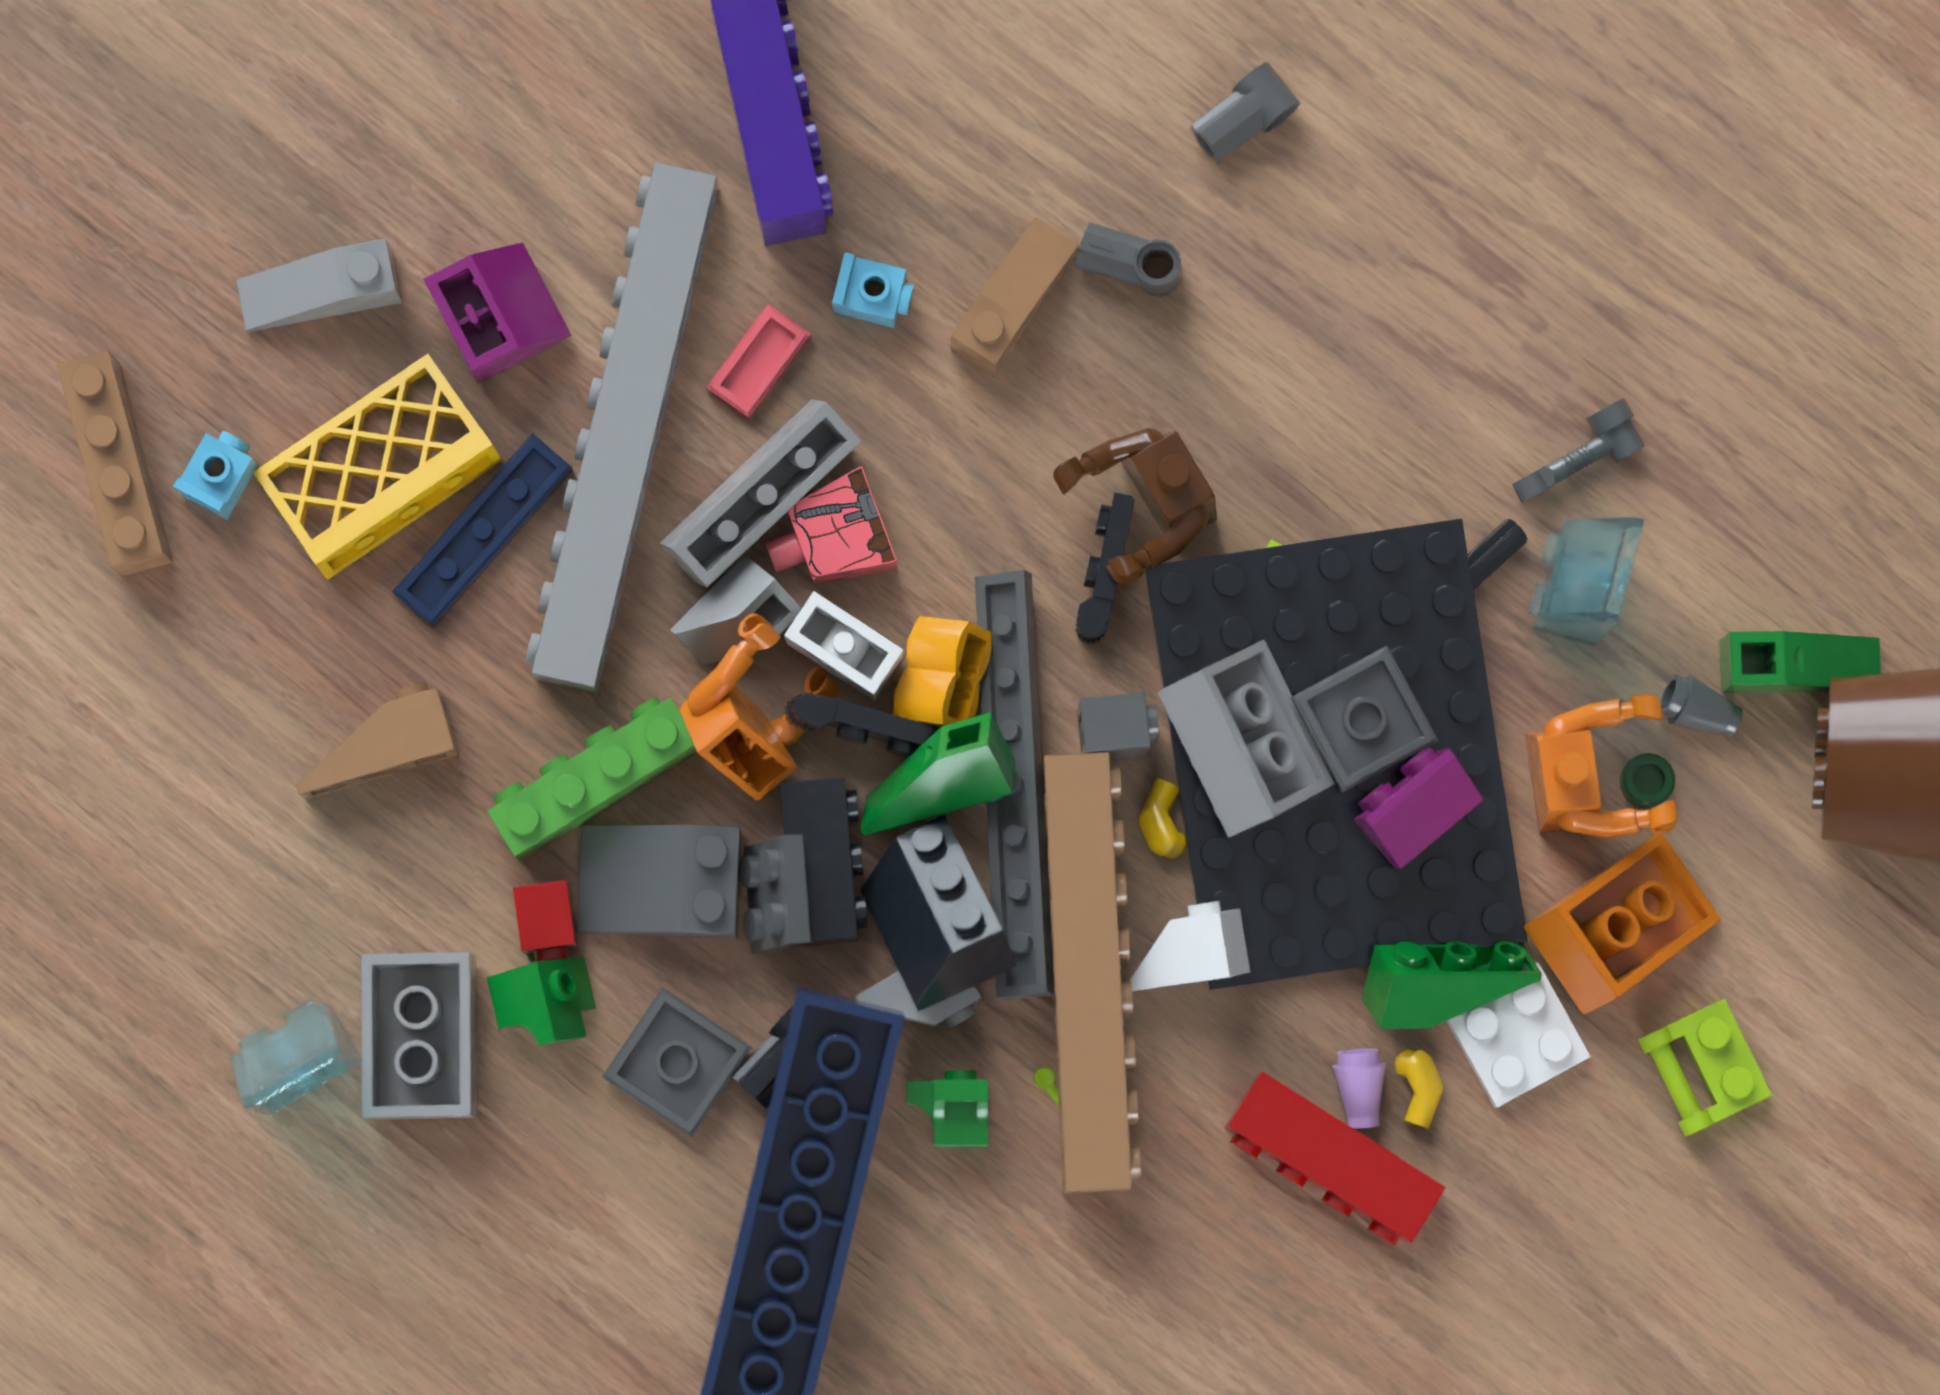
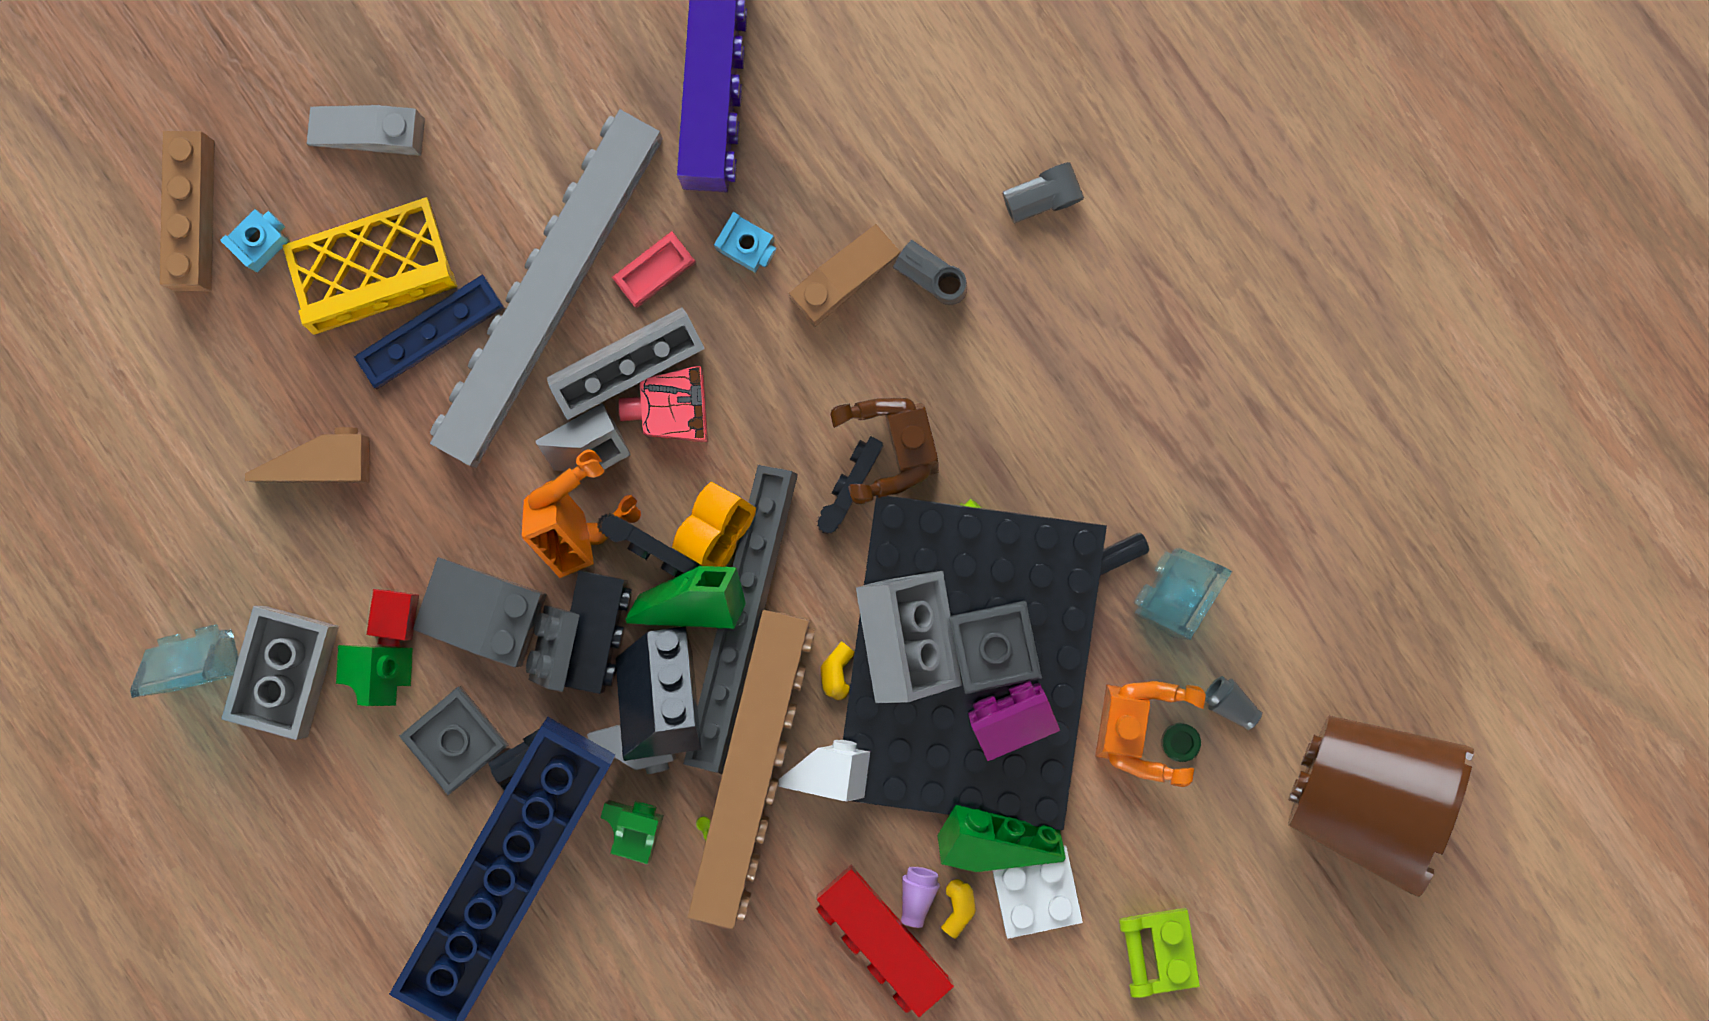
camera: 20 degrees right, 5 degrees up
(497, 309) = (480, 180): magenta slope -> none
(592, 780) = (449, 530): bright green brick -> none
(844, 646) = (651, 488): white brick -> none
(1117, 726) = (822, 601): dark grey brick -> none
(1614, 435) = (1232, 495): dark grey brick -> none
(1622, 924) = (1132, 838): orange slope -> none
(1793, 660) = (1310, 692): green slope -> none

